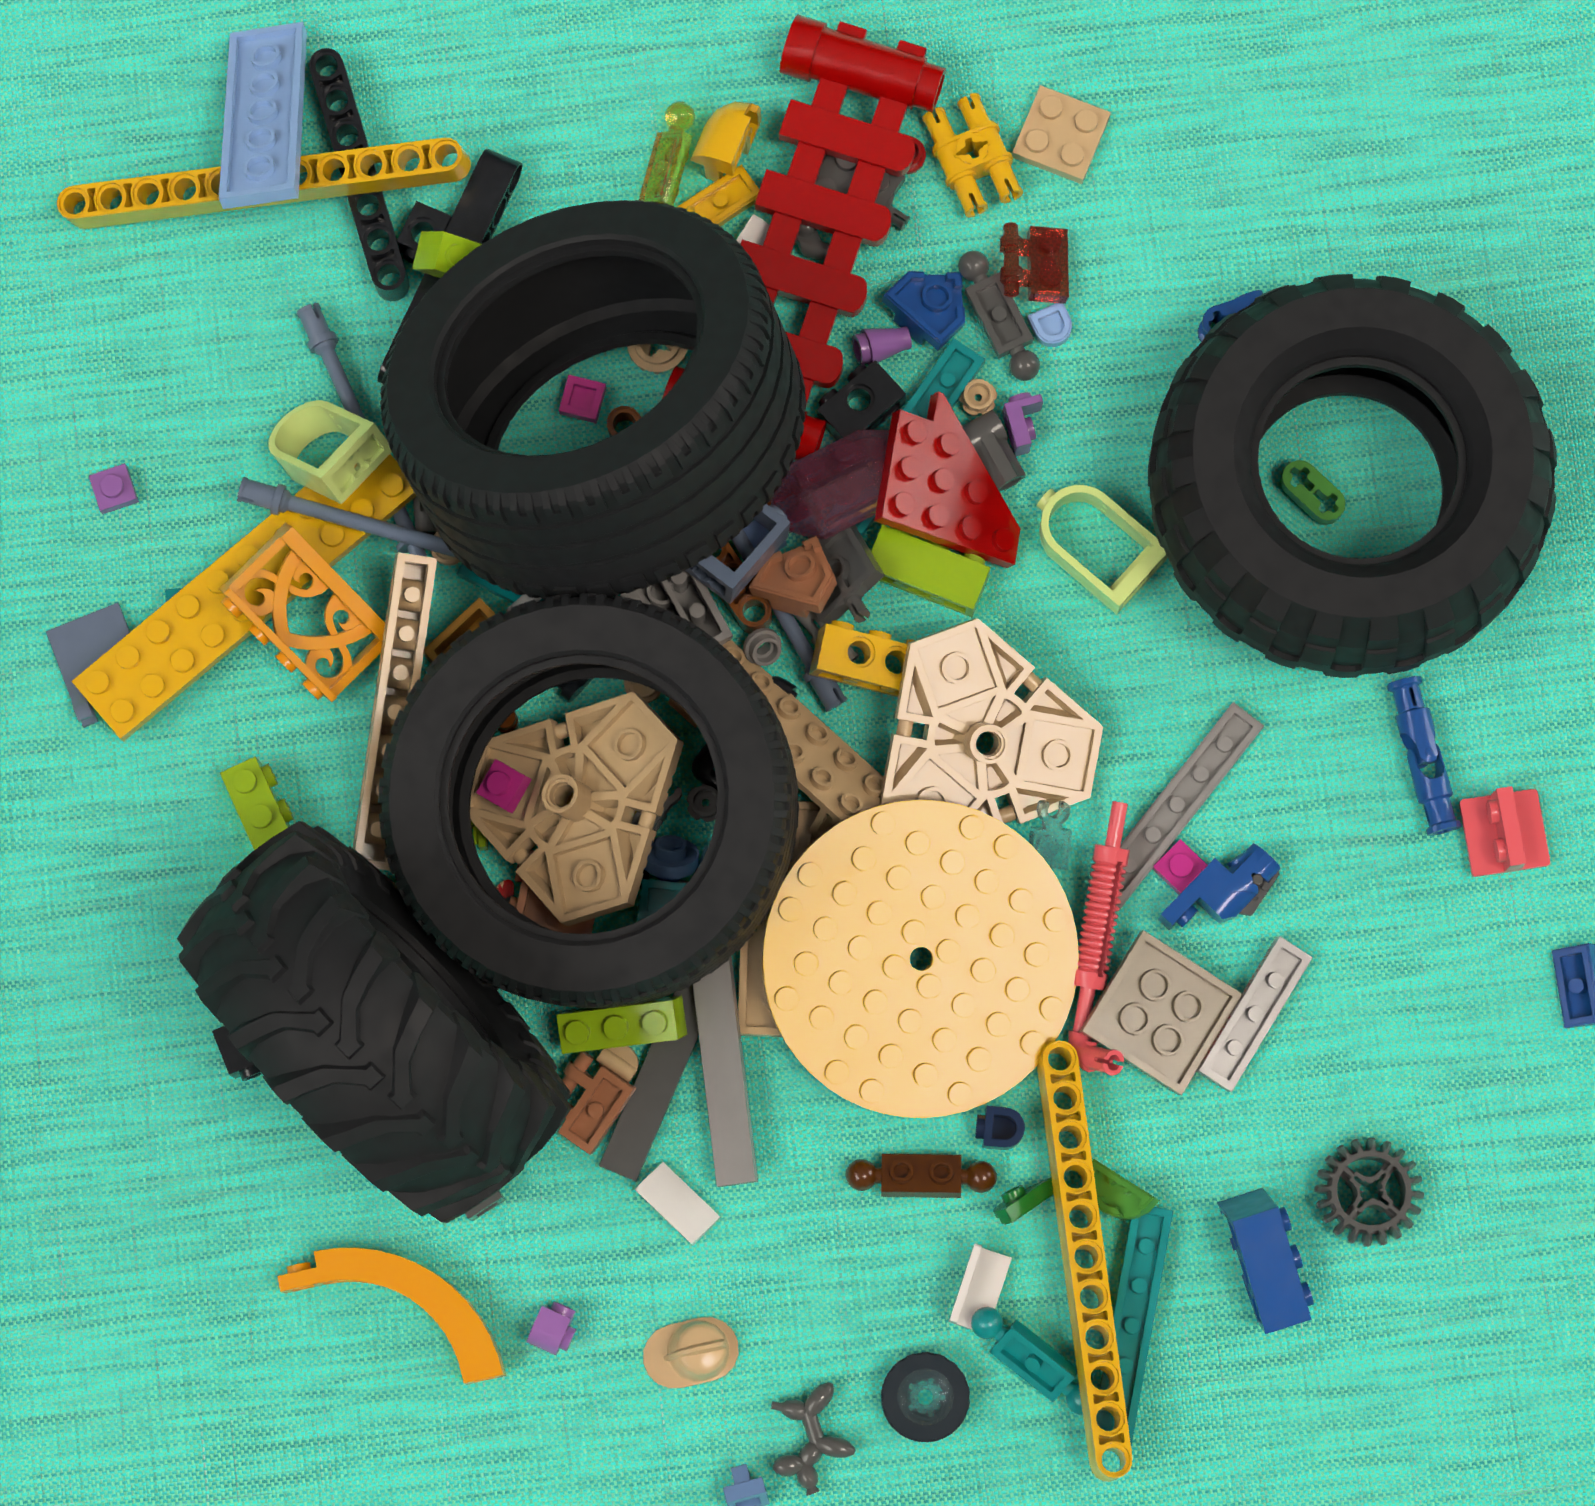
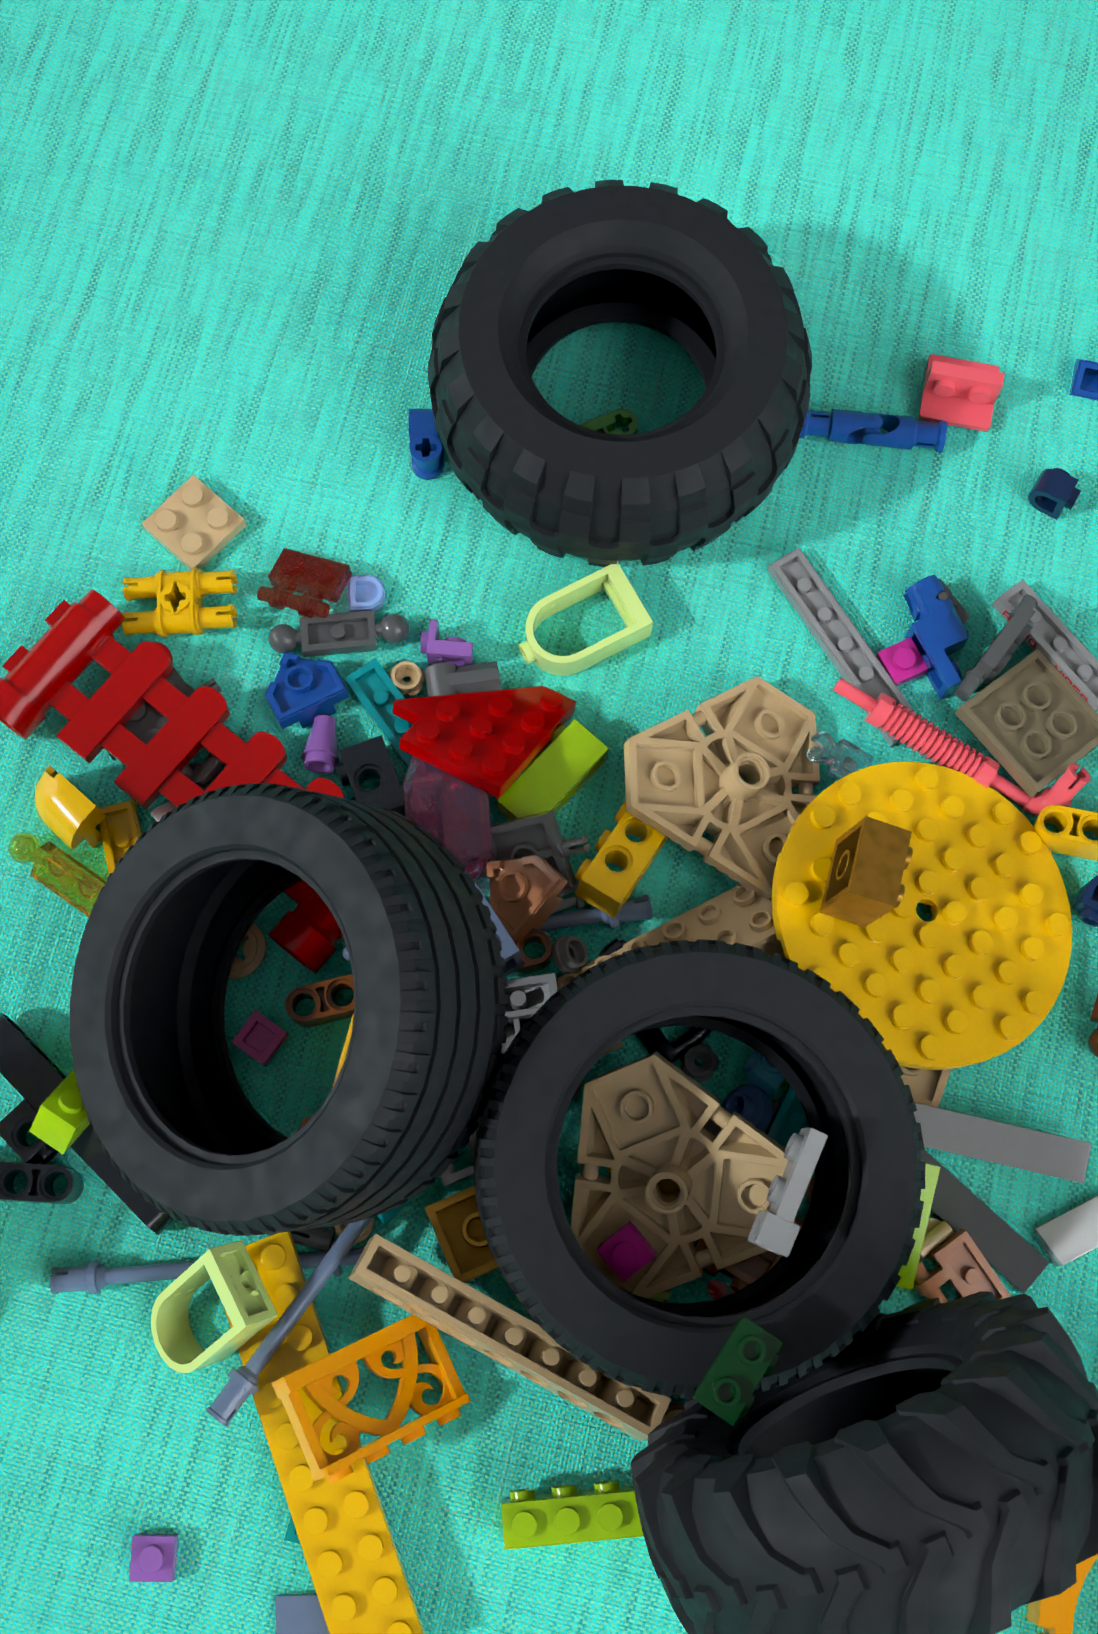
camera: 75 degrees left, 5 degrees down
(418, 872) = (738, 1370): none -> dark green bracket
(546, 870) = (775, 1227): none -> light grey plate
(919, 874) = (867, 872): none -> pearl gold brick
(1235, 956) = (1000, 649): none -> dark grey plate
(1425, 962) = (1054, 492): none -> dark blue plate

